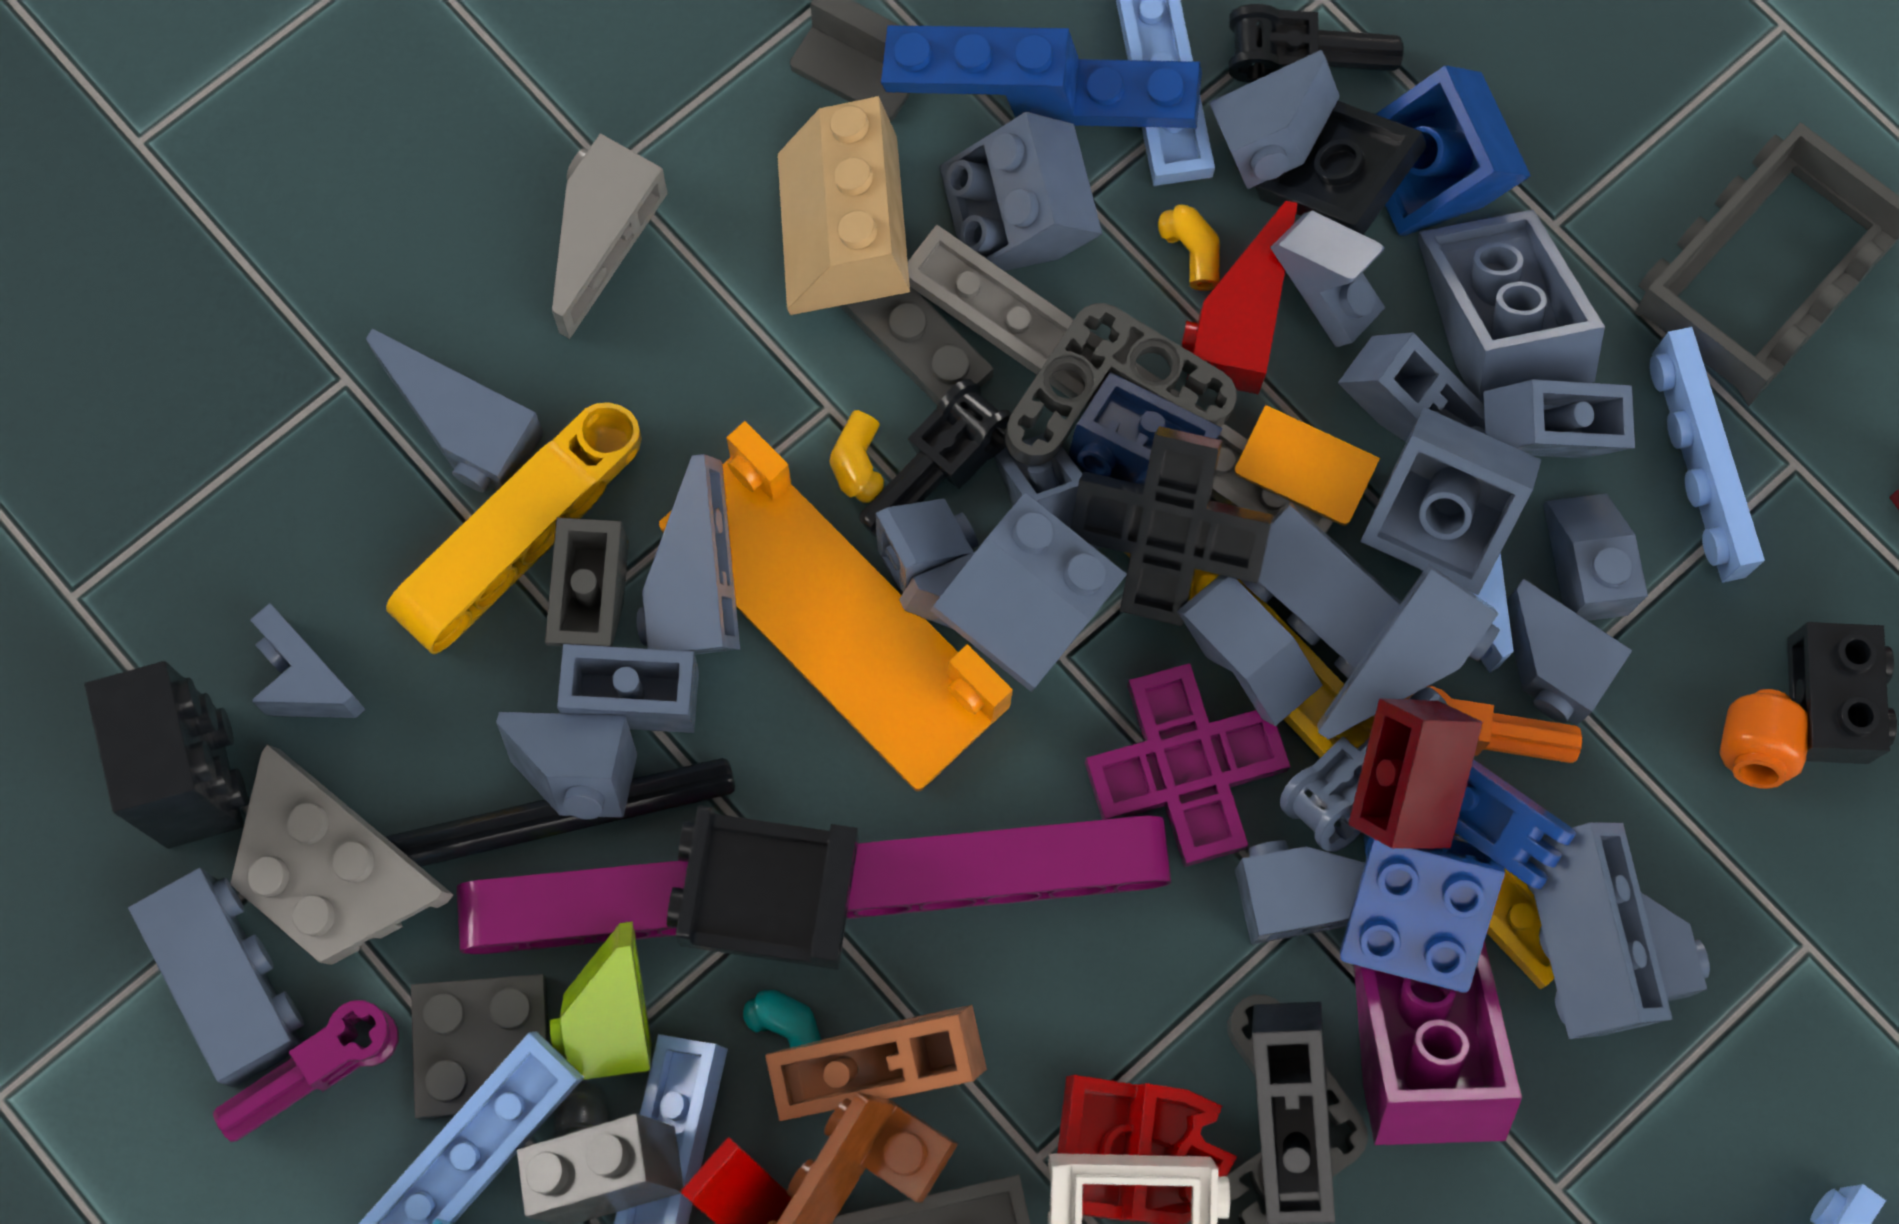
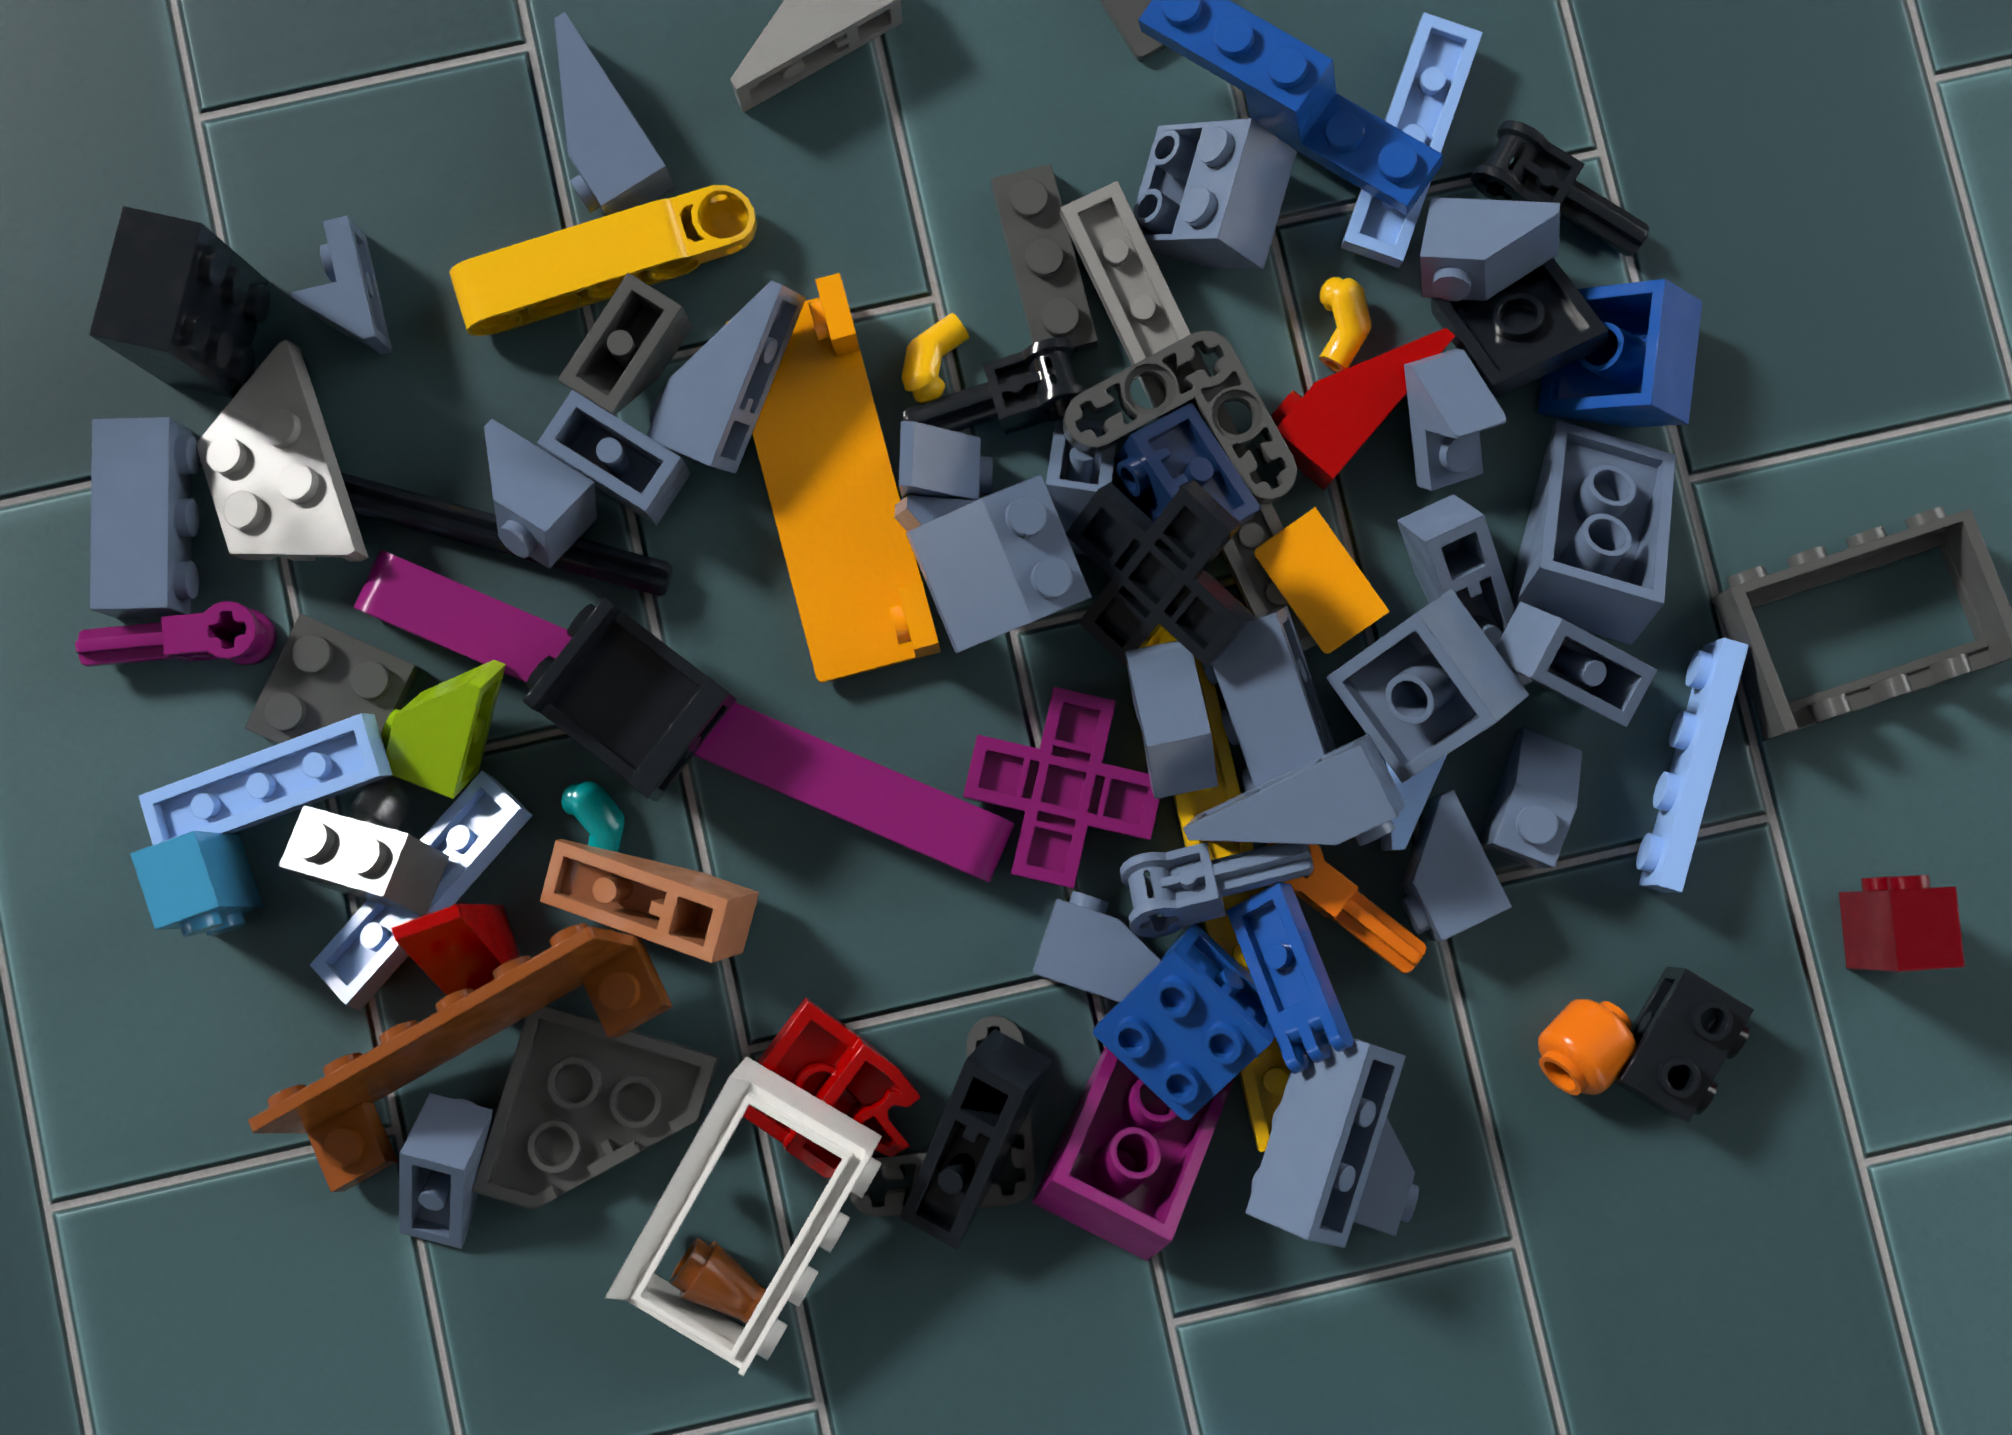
camera: 30 degrees right, 10 degrees up
(842, 209) = (1043, 122): tan slope -> none
(1415, 773) = (1241, 914): dark red brick -> none

